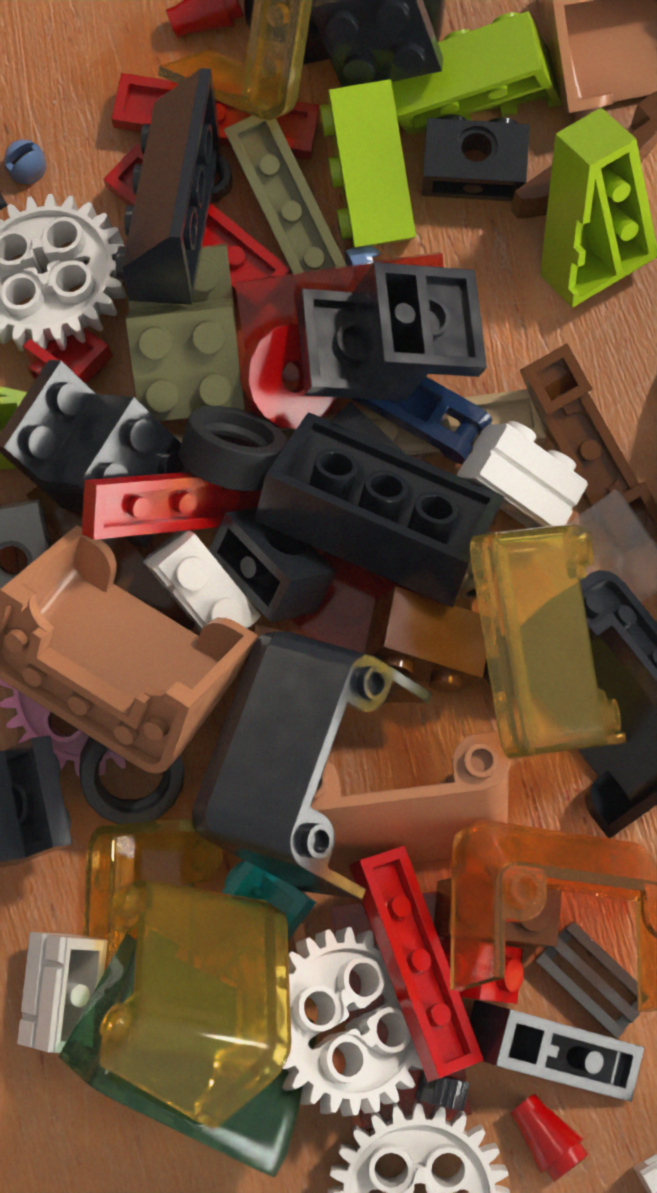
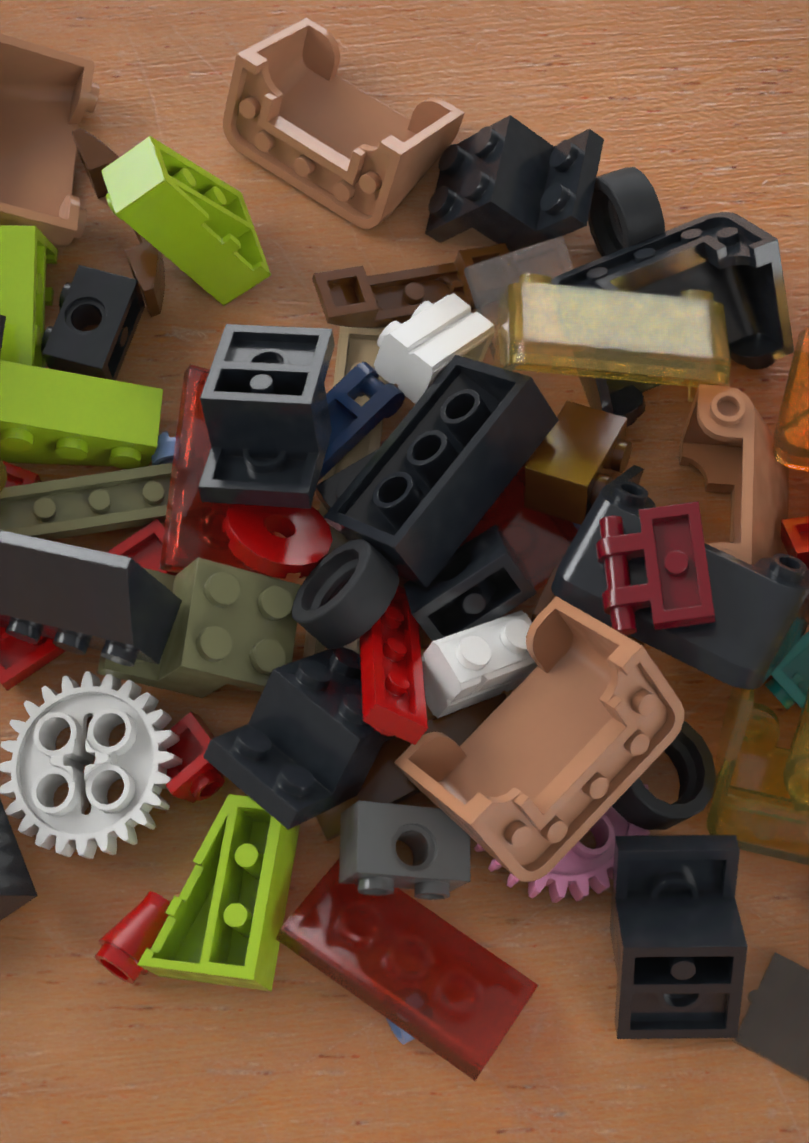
camera: 80 degrees left, 10 degrees down
(285, 729) = (675, 568): none -> dark red plate

